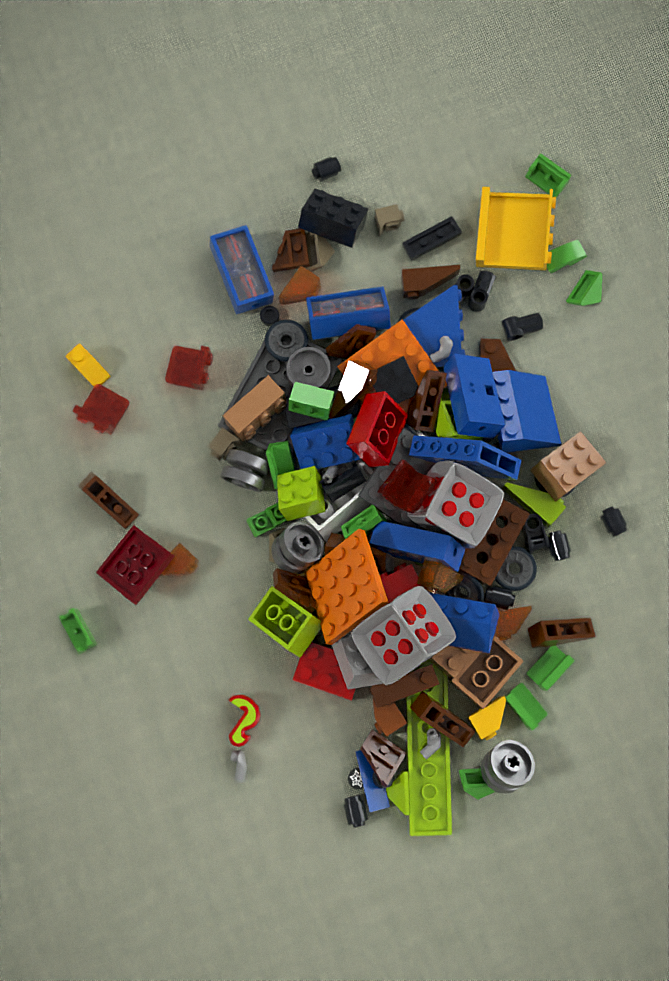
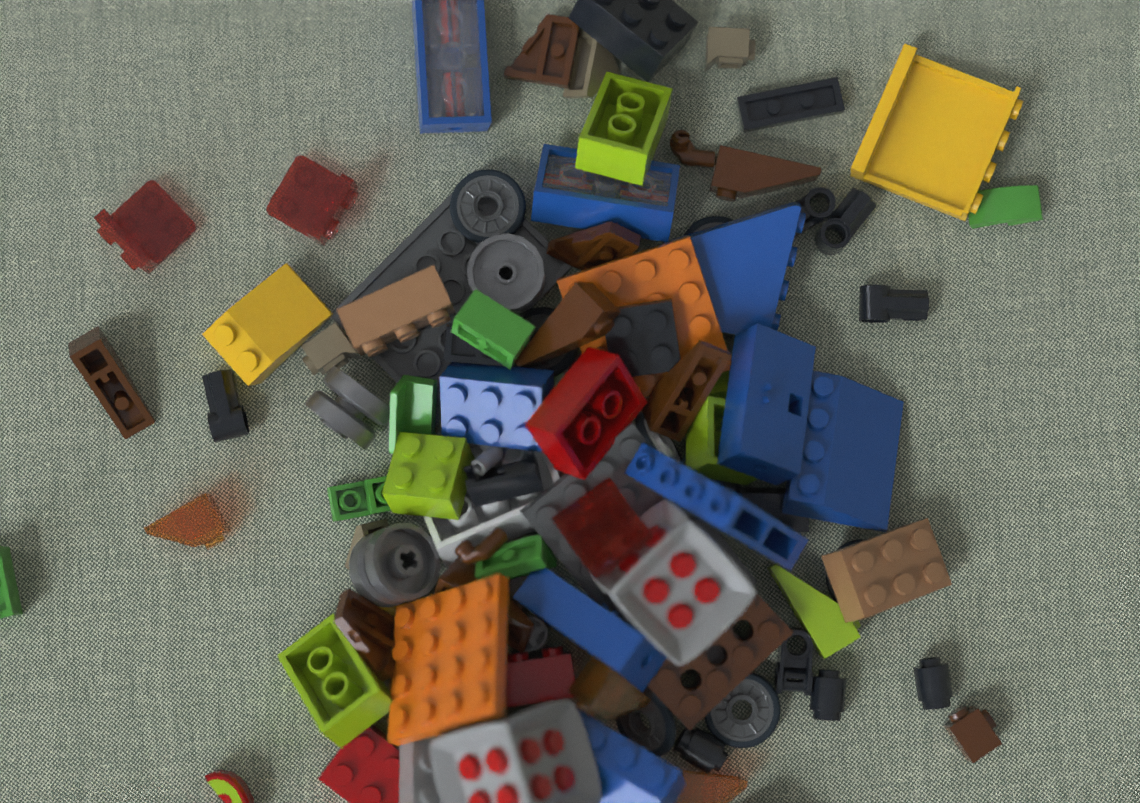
camera: 15 degrees right, 5 degrees up
(87, 365) = (144, 144): yellow slope -> none
(135, 564) = (121, 507): dark red plate -> none
(177, 497) = (226, 415): none -> black piece
(185, 441) = (267, 325): none -> yellow slope
(269, 315) = (475, 152): black tile -> none
(301, 286) = (541, 121): clear orange slope -> none
(344, 523) = (482, 551): none -> reddish brown arm
(347, 275) = (623, 128): none -> lime brick
(383, 280) = (687, 153): none -> reddish brown arm
(444, 351) = (744, 310): light grey arm -> none
(497, 354) = (833, 342): reddish brown wing -> none
(548, 175) = (1024, 57): bright green hinge -> none
(587, 289) = (1024, 276): bright green slope -> none
(644, 541) = (972, 732): none -> reddish brown brick

